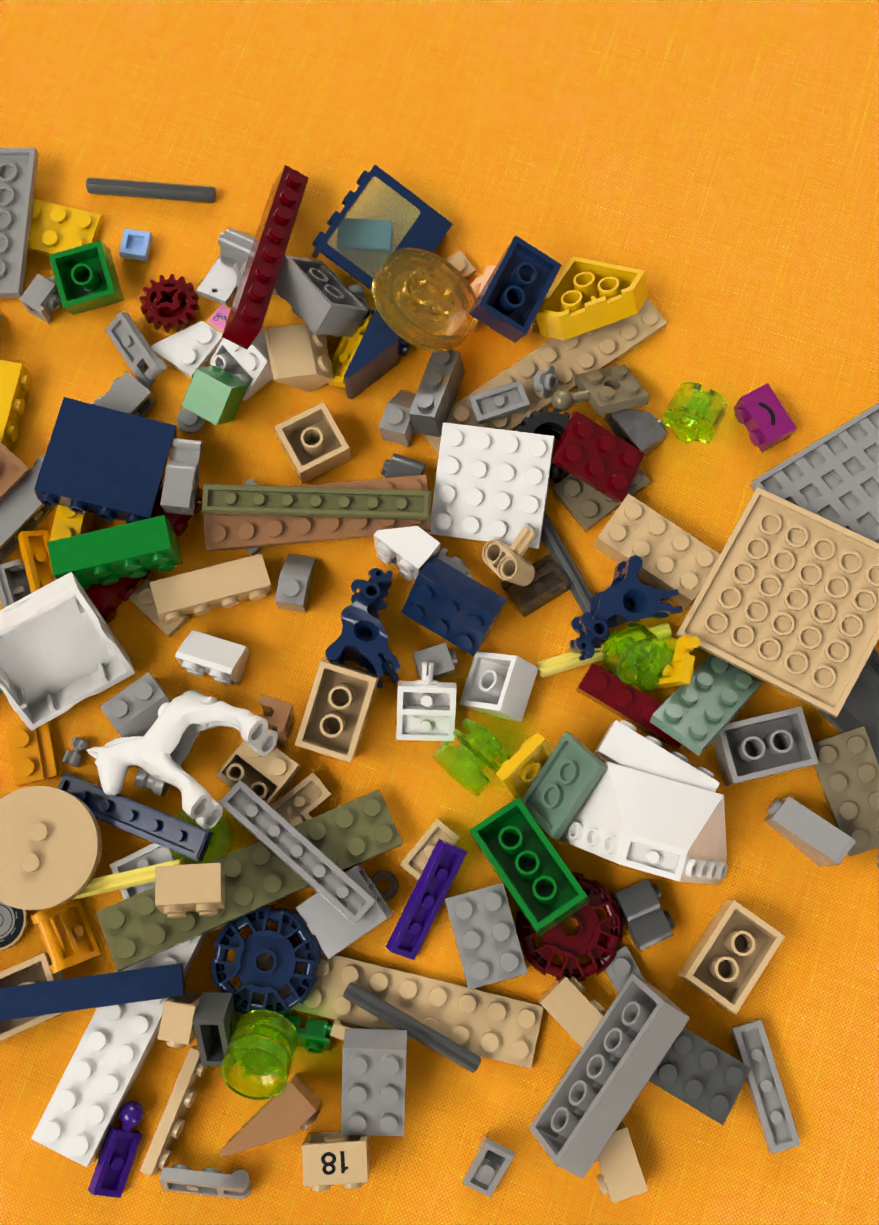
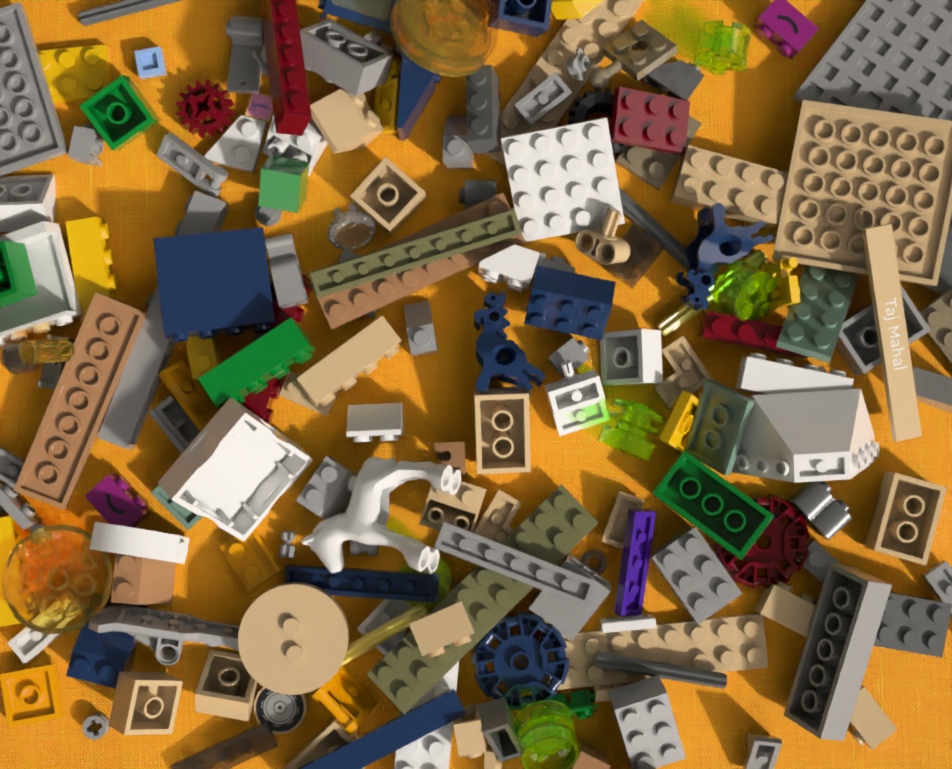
camera: 15 degrees left, 10 degrees up
(264, 461) = (351, 228): none -> clear hair
(395, 963) = (627, 623): none -> white tile
(552, 717) = (688, 372): none -> tan plate
(775, 751) = (891, 332): none -> tan tile

